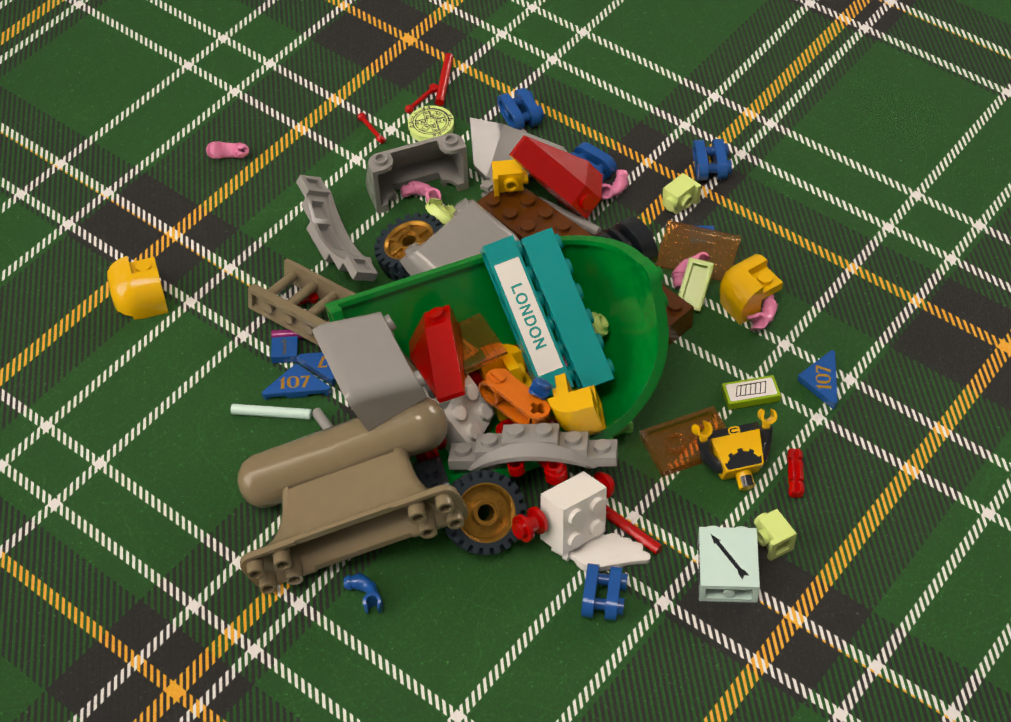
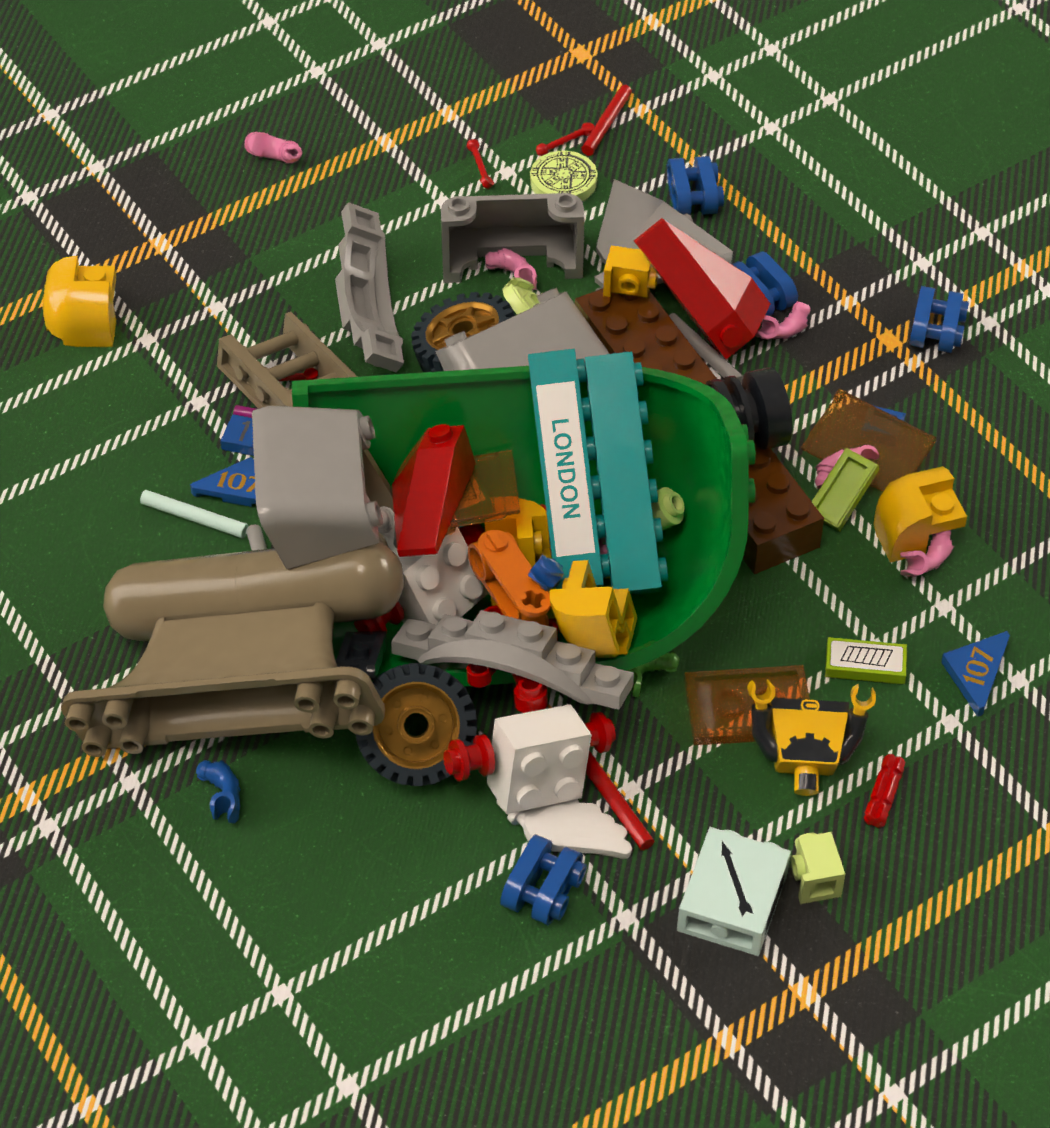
camera: 15 degrees right, 0 degrees up
(681, 194) = (874, 357): yellowish green brick -> none

